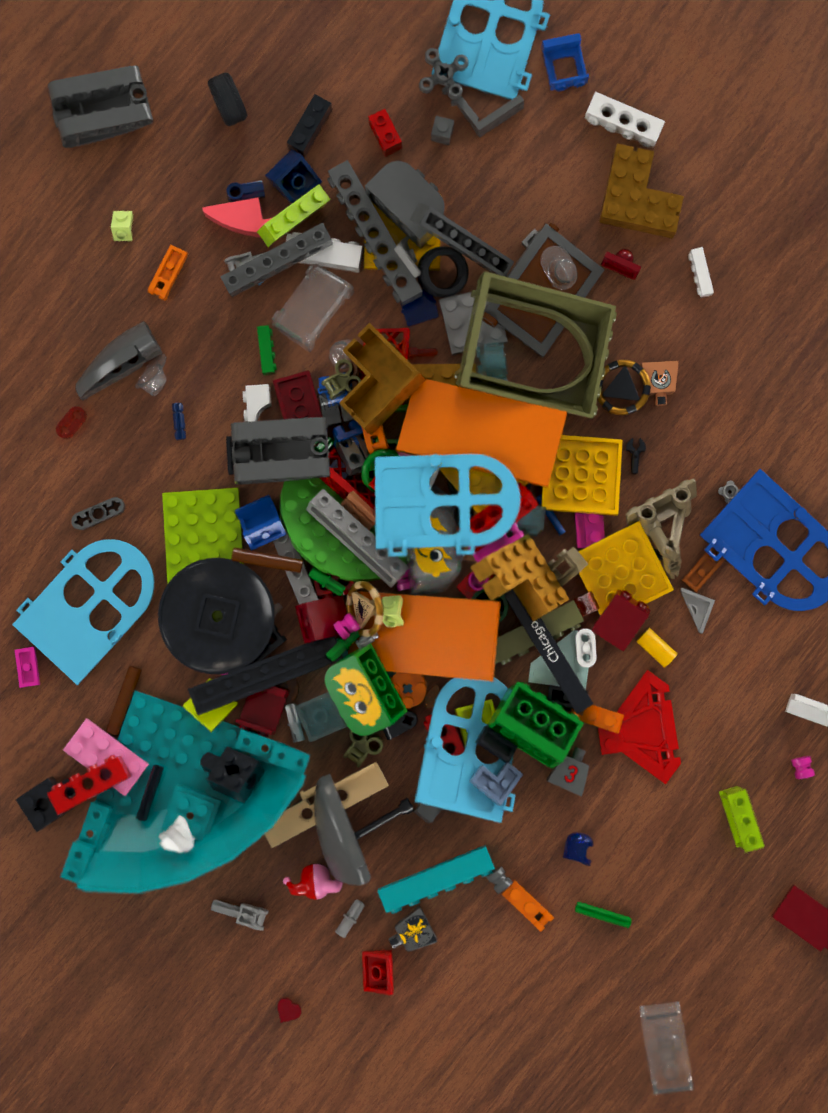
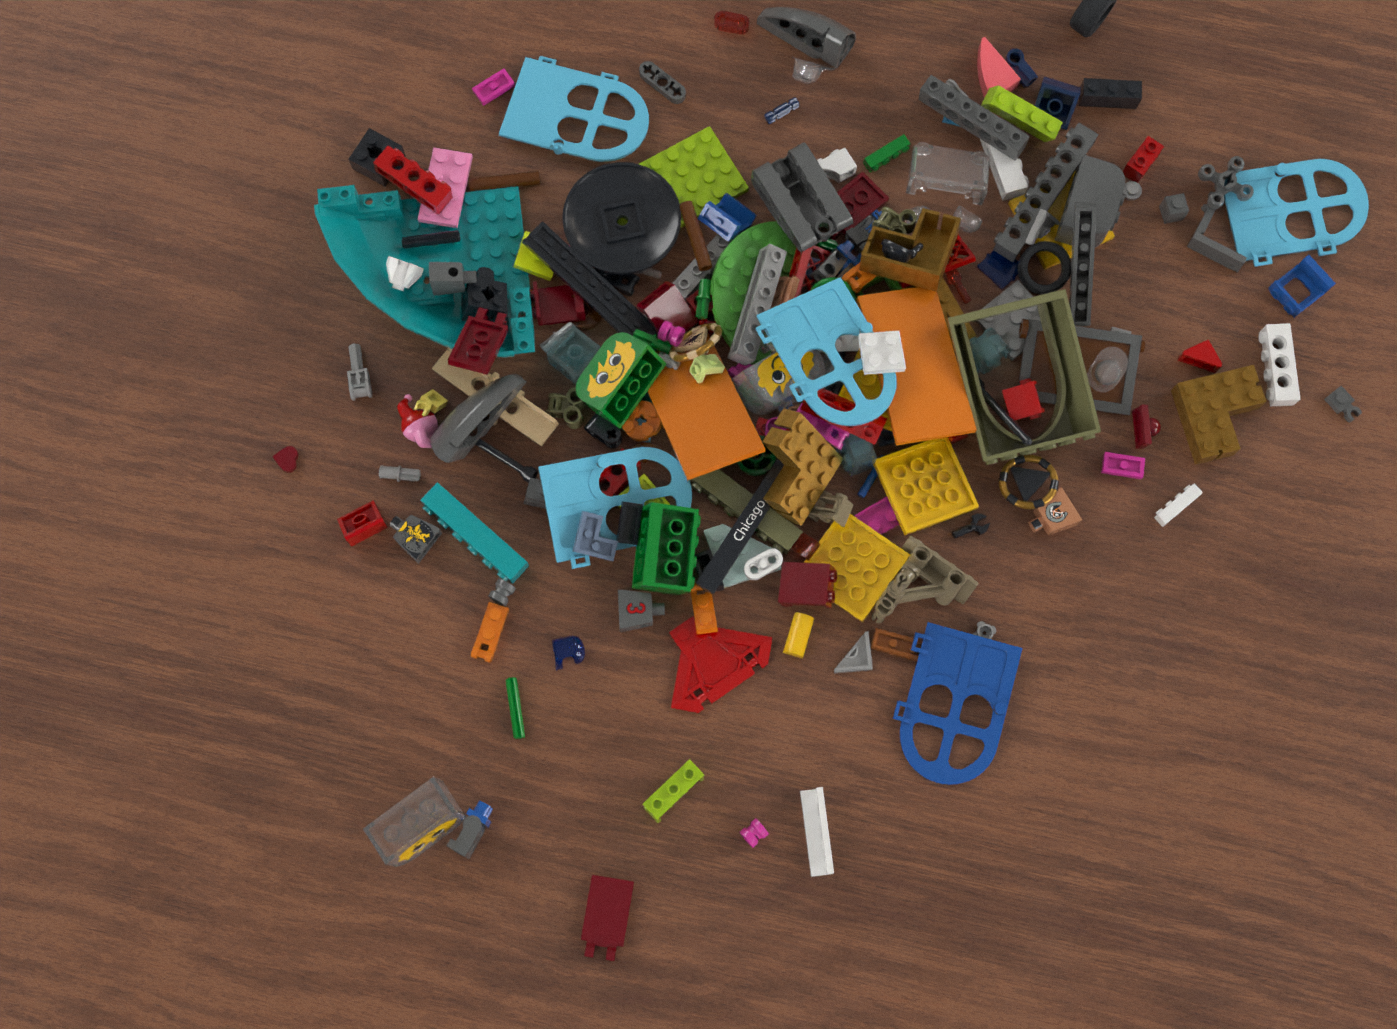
camera: 55 degrees right, 10 degrees down
(167, 272) = (910, 38): orange plate -> none
(200, 804) = (449, 277): none -> dark grey torso
(280, 801) = (479, 342): none -> dark red tile
(300, 862) = (432, 402): none -> light yellow plate
(363, 314) = (969, 221): none -> clear hair
(376, 394) = (898, 253): none -> black hat
(407, 155) = (1132, 190): none -> light grey plate
(463, 458) = (881, 352): none -> white plate
(552, 355) = (1023, 400): none -> red plate
(557, 378) = (1004, 416): none -> black piece
(584, 180) = (1201, 356): none -> red slope
(645, 299) = (1123, 465): none -> dark pink plate
(680, 87) = (1340, 401): none -> dark grey plate
(686, 993) = (472, 830): none -> dark grey hips

